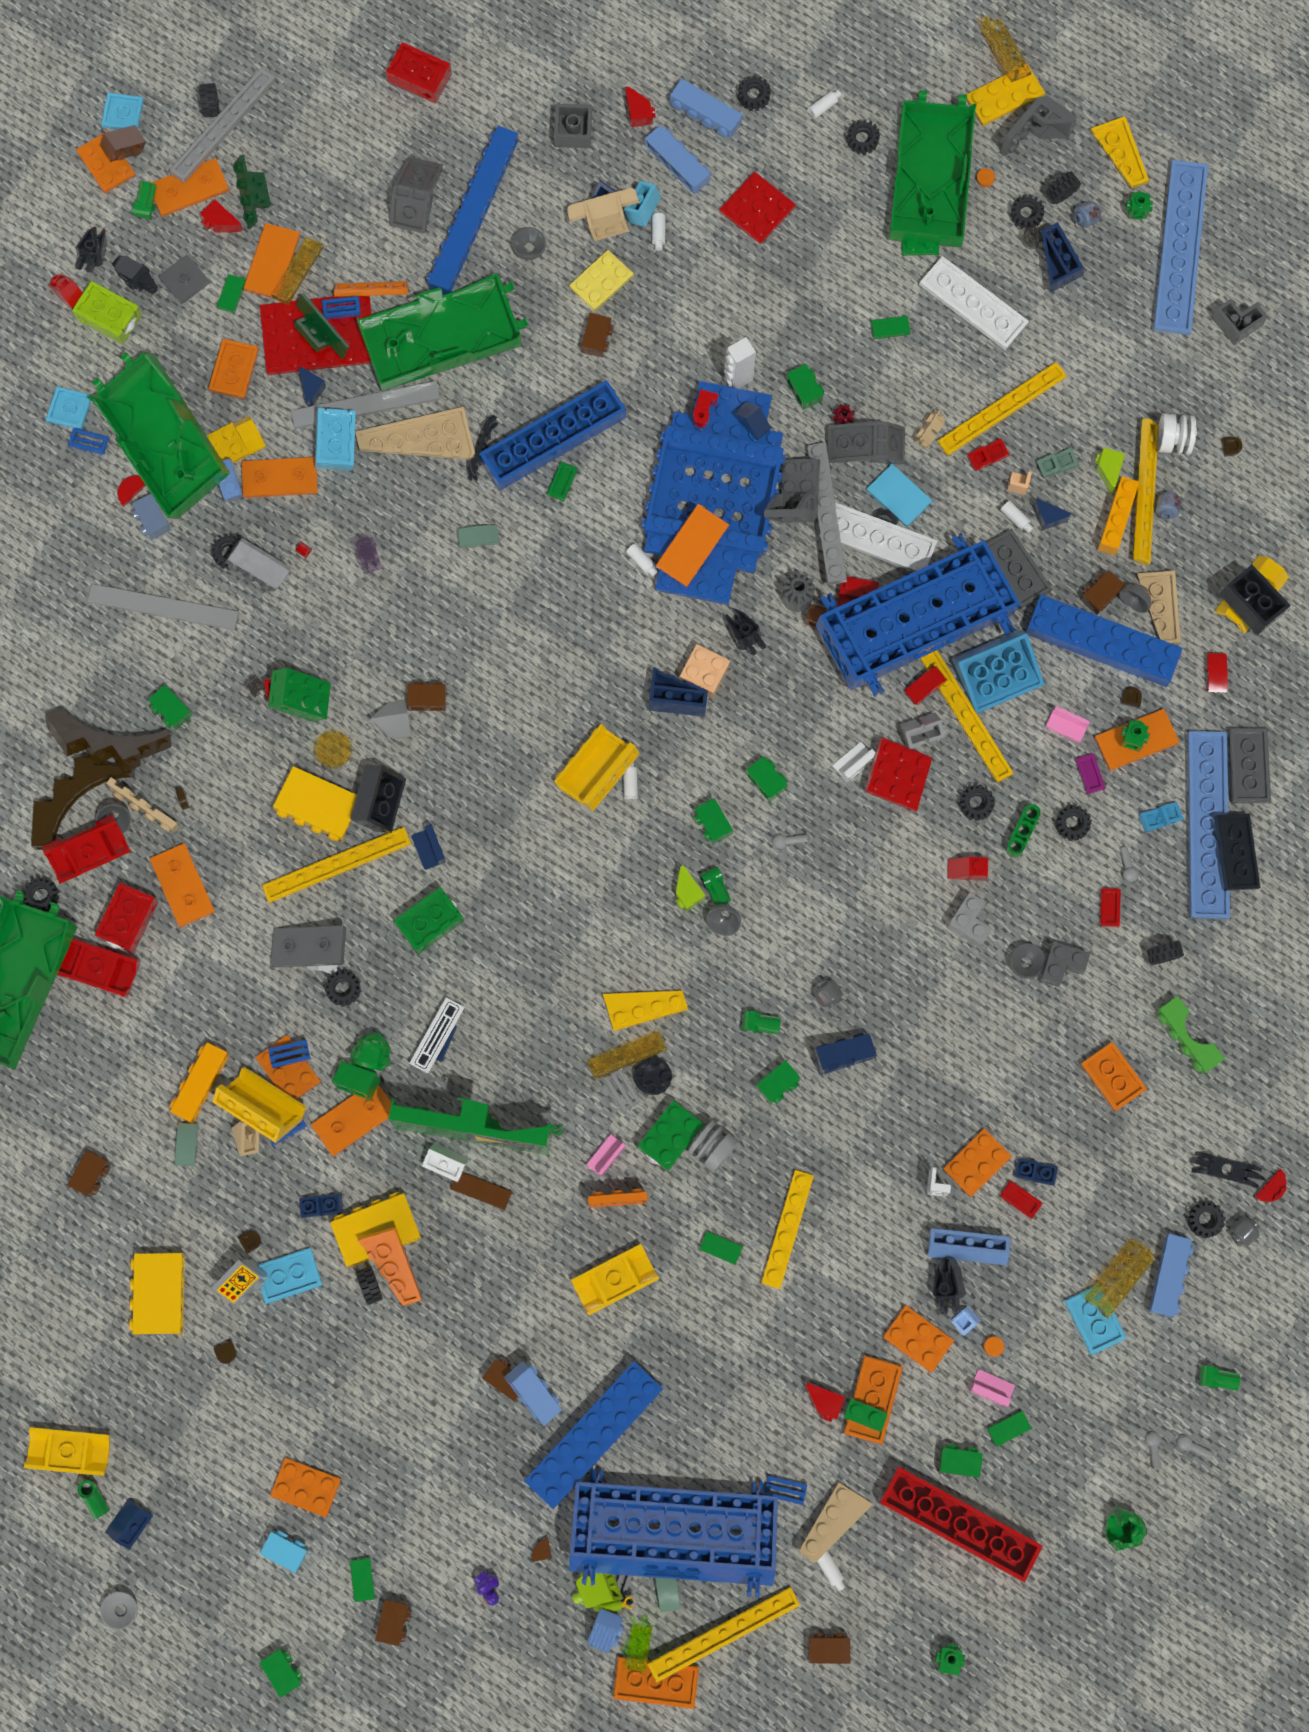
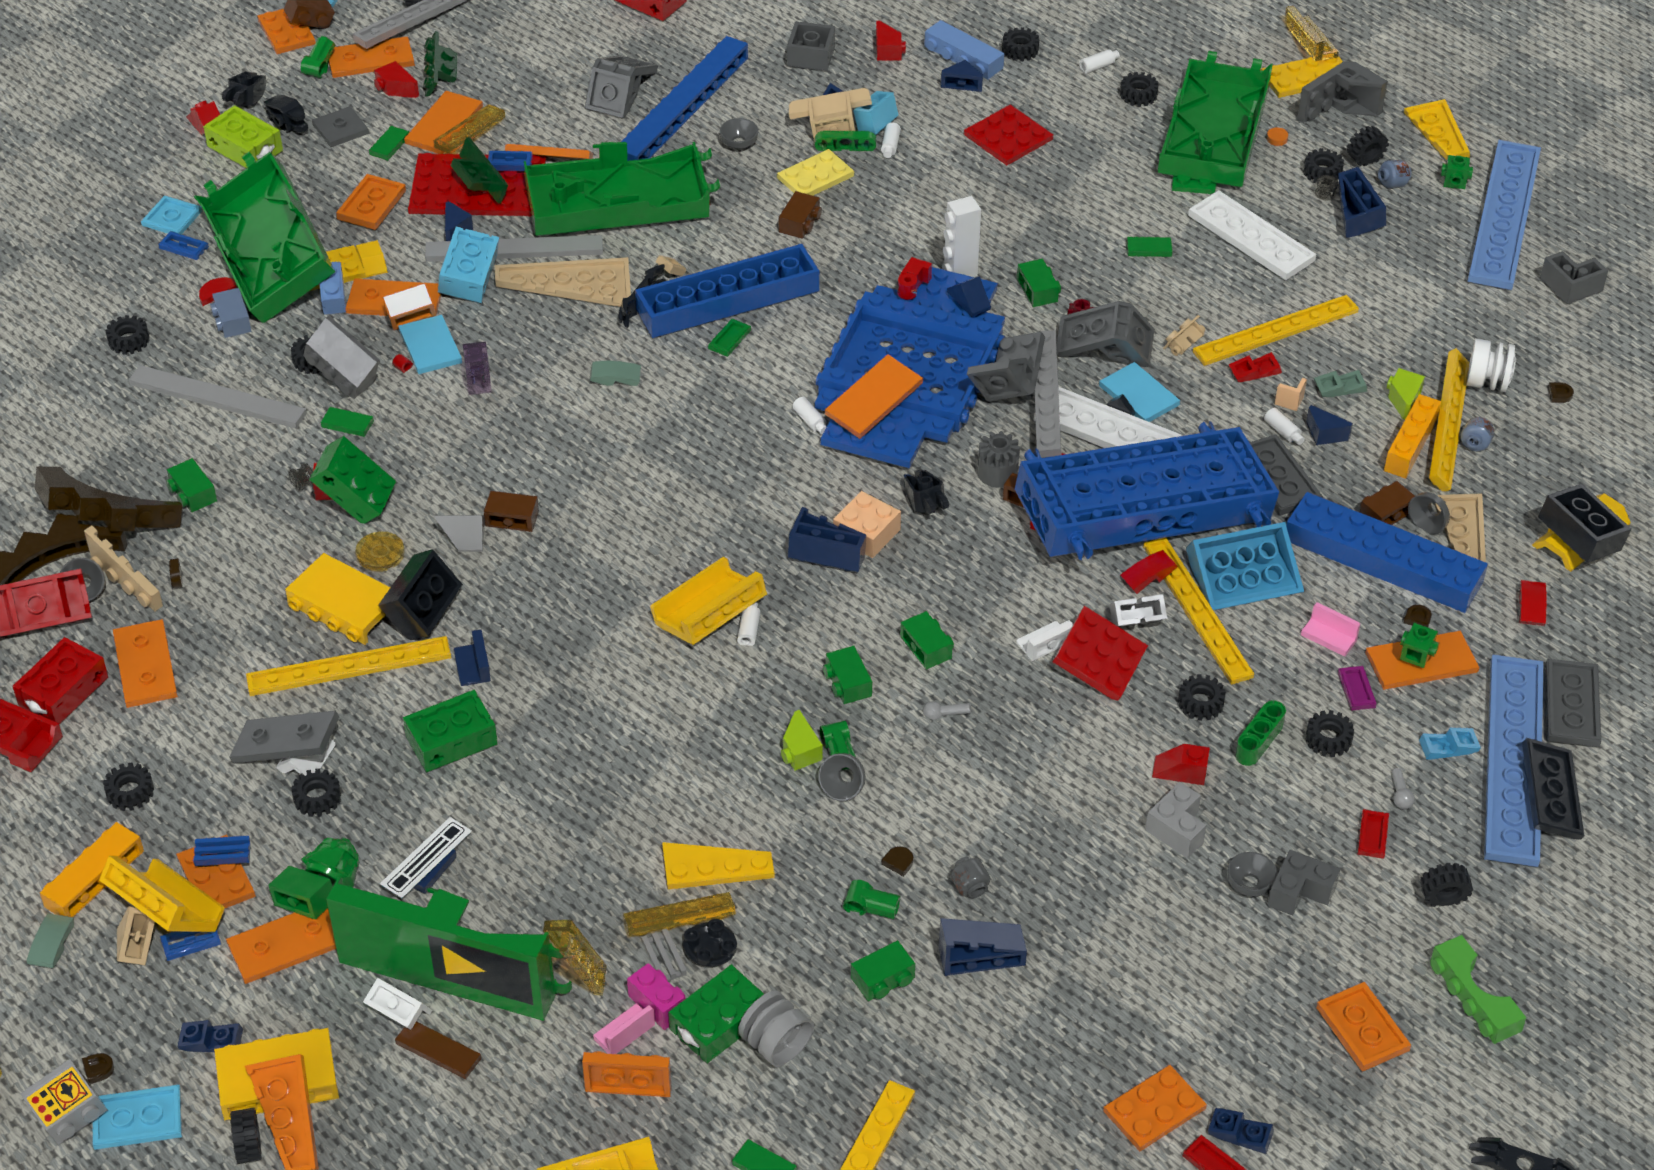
camera: 10 degrees right, 30 degrees down
(69, 542) = (130, 343): none -> black tyre
(196, 995) = (126, 775): none -> black tyre
(274, 619) = (347, 421): none -> green tile
(296, 491) = (409, 305): none -> brick
(321, 524) = (430, 344): none -> medium azure tile
(500, 409) = (671, 265): none -> tan tile
(570, 1118) = (578, 953): none -> clear yellow fence
(614, 239) = (860, 136): none -> green beam
(624, 1128) = (652, 988): none -> dark pink brick
(678, 159) = (923, 85): medium blue brick -> none
(709, 144) = (962, 77): none -> dark blue slope
(774, 982) = (898, 860): none -> dark brown tile
(935, 1188) = (1092, 1119): white panel -> none

